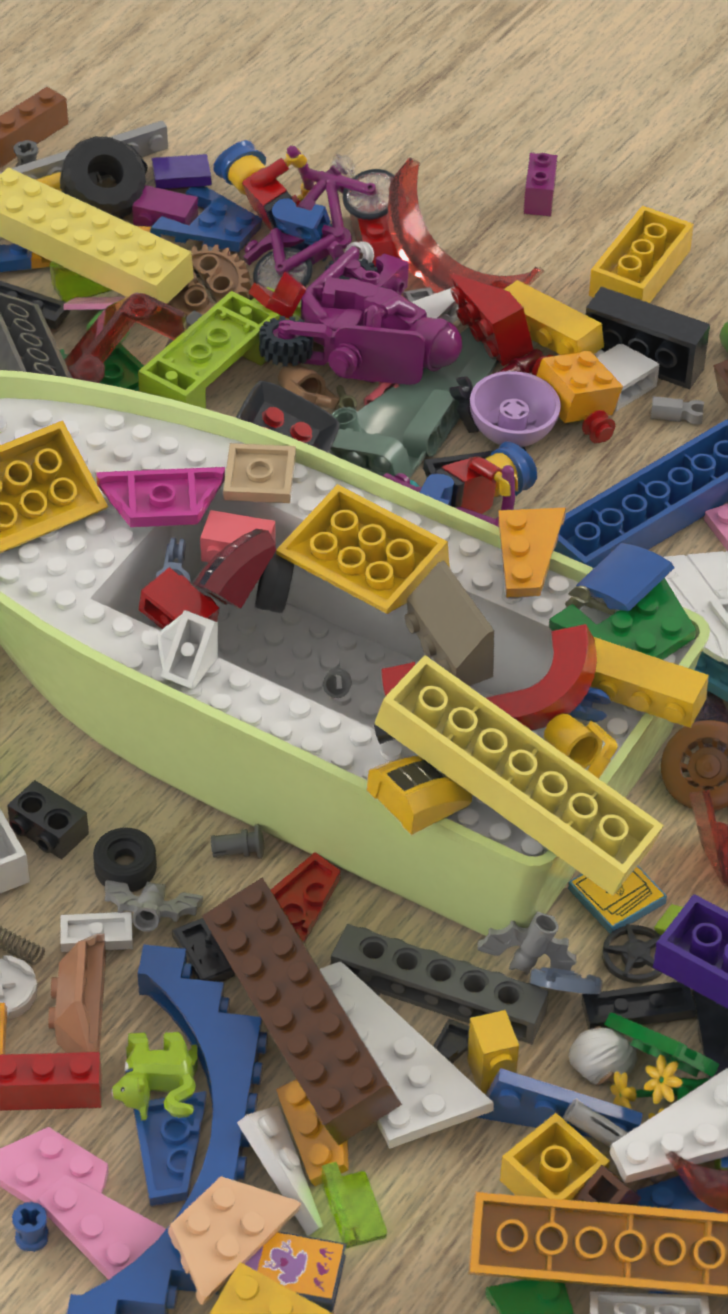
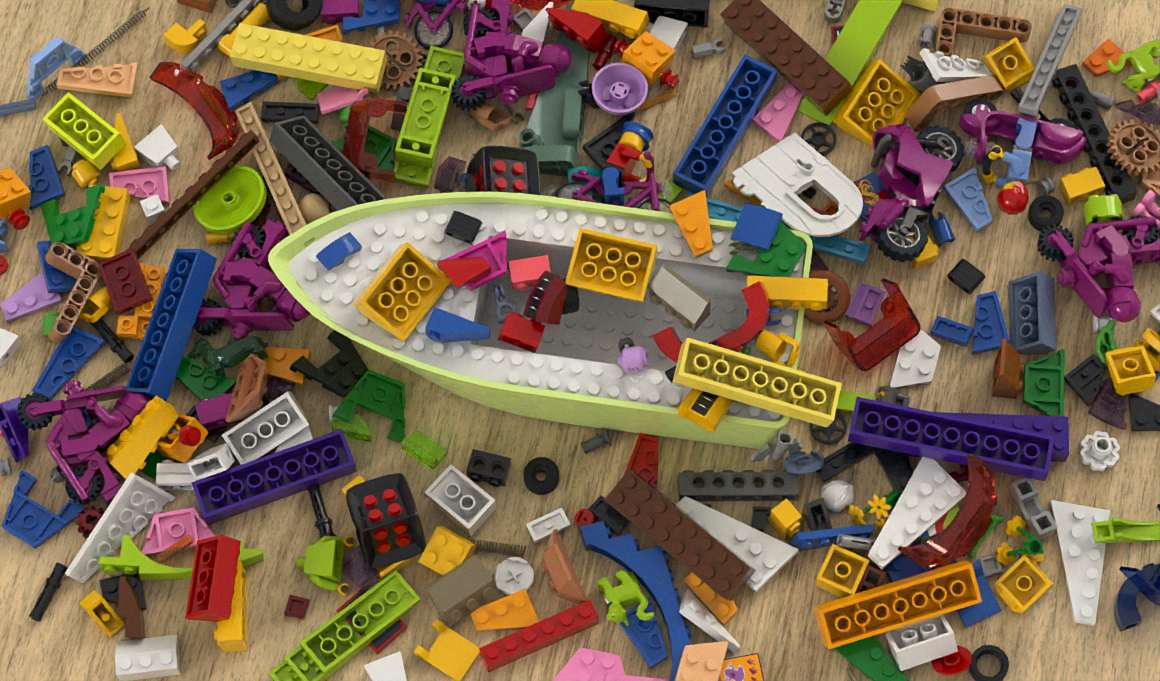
camera: 20 degrees left, 20 degrees up
(73, 560) = (453, 328): none -> blue slope
(128, 489) = (465, 270): none -> red slope
(151, 903) = (569, 499): light grey animal -> none
(161, 936) = (584, 517): none -> red tile
(165, 445) = (463, 227): none -> black piece
(188, 648) = (542, 364): white slope -> none
(259, 473) = (525, 227): tan plate -> none
(283, 299) = (449, 58): red panel -> none
(334, 689) = (634, 359): none -> lavender head
(352, 1206) = (750, 629): clear neon green panel -> none
(553, 1061) = (816, 515): none -> dark grey slope
(568, 448) = (675, 94): none -> light orange piece
(659, 1044) = (869, 482): green wing -> none

